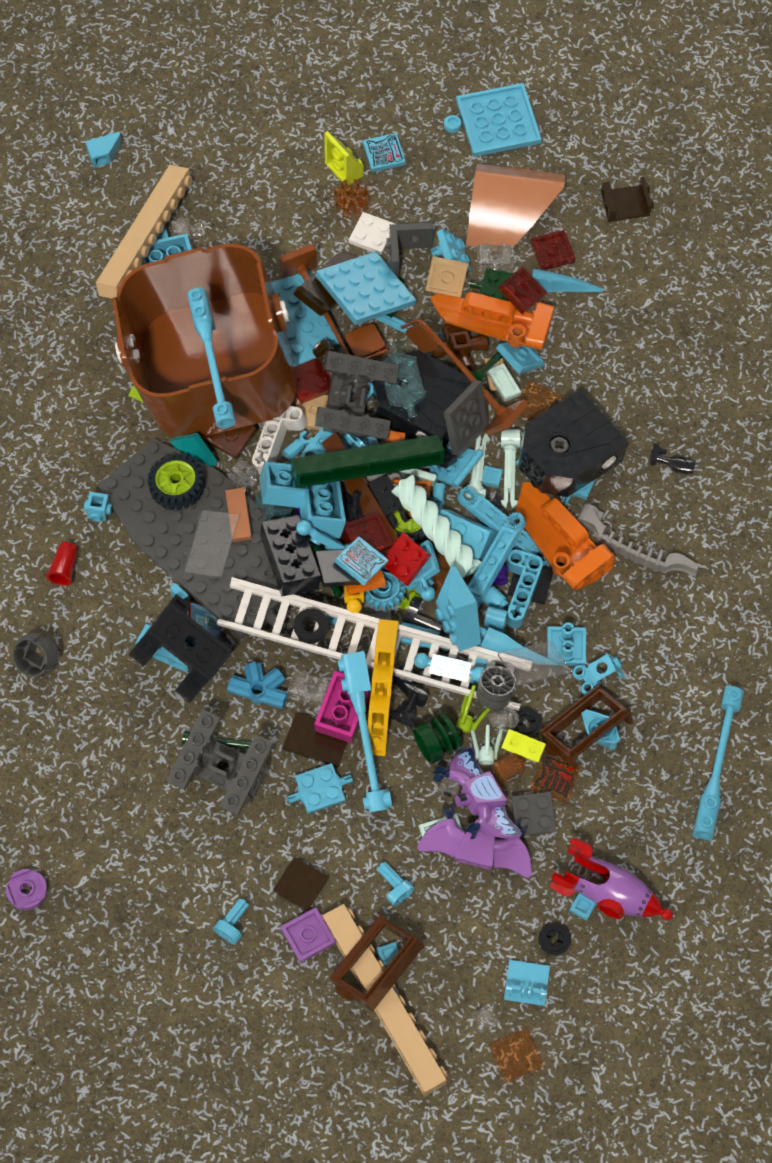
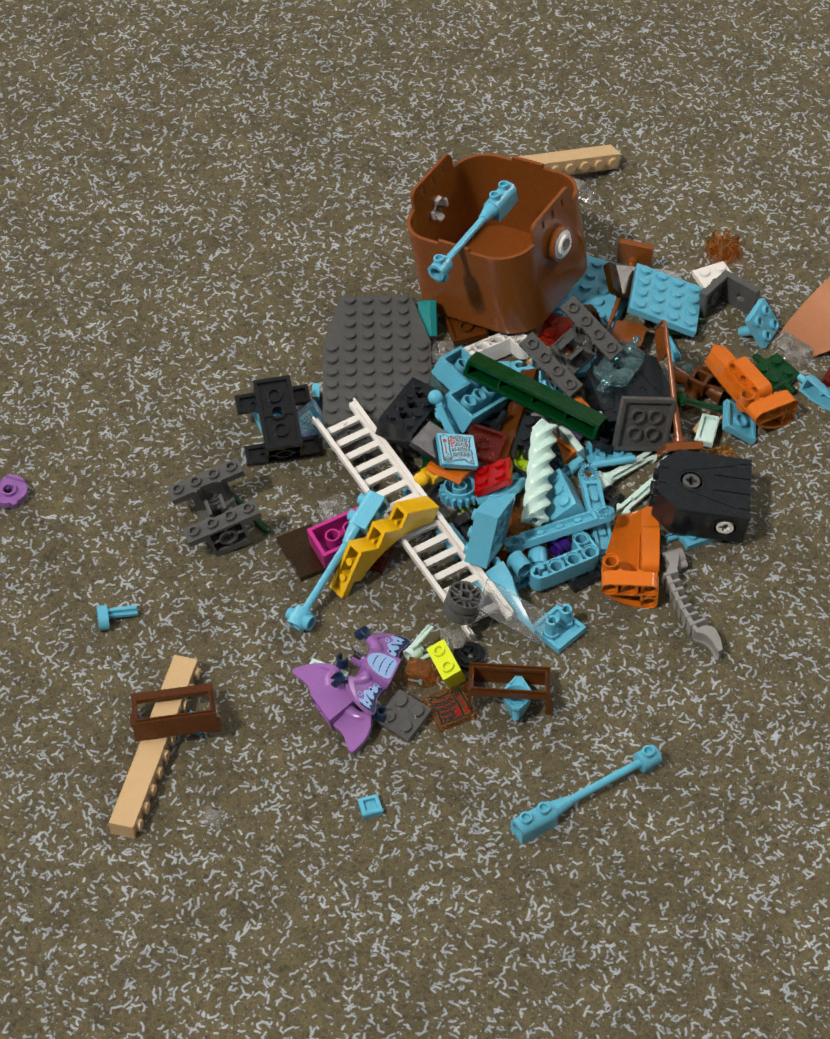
camera: 45 degrees right, 15 degrees down
(30, 662) = (177, 358): dark grey piece -> none
(63, 565) = (260, 323): red plant -> none
(98, 506) = (323, 305): medium azure brick -> none
(103, 149) = (577, 111): medium azure slope -> none
(173, 469) = (390, 324): wheel -> none
(212, 543) = (369, 375): clear piece -> none
(237, 505) = (411, 368): nougat tile -> none
(256, 681) = (304, 488): dark azure piece -> none
(300, 884) = (187, 630): dark brown tile -> none
(308, 935) = (151, 663): medium lavender plate -> none
(311, 614) = (376, 458): black tyre -> none
(319, 788) = (271, 582): medium azure plate -> none
(342, 160) = (742, 215): neon yellow slope -> none
(384, 152) = (782, 237): medium azure tile -> none
(401, 890) = (251, 687): medium azure piece -> none
(406, 713) = (385, 582): black piece -> none
(408, 686) = (409, 568): black hinge -> none
(441, 736) = (382, 608): dark green wheel -> none
(446, 276) = (737, 334): tan plate -> none
(448, 667) = (443, 563): plate -> none
(465, 722) = (423, 617): lime plant -> none
(491, 476) = (628, 484): medium azure tile -> none
(516, 1056) = (205, 862): clear orange tile -> none
(522, 290) = (787, 377): clear red plate -> none
(527, 983) = (268, 820): medium azure hinge -> none
(550, 931) = (329, 804): black gear -> none
(591, 675) = (553, 658): medium azure piece -> none
(620, 893) = (400, 810): piece -> none
(676, 463) = (787, 576): black piece -> none

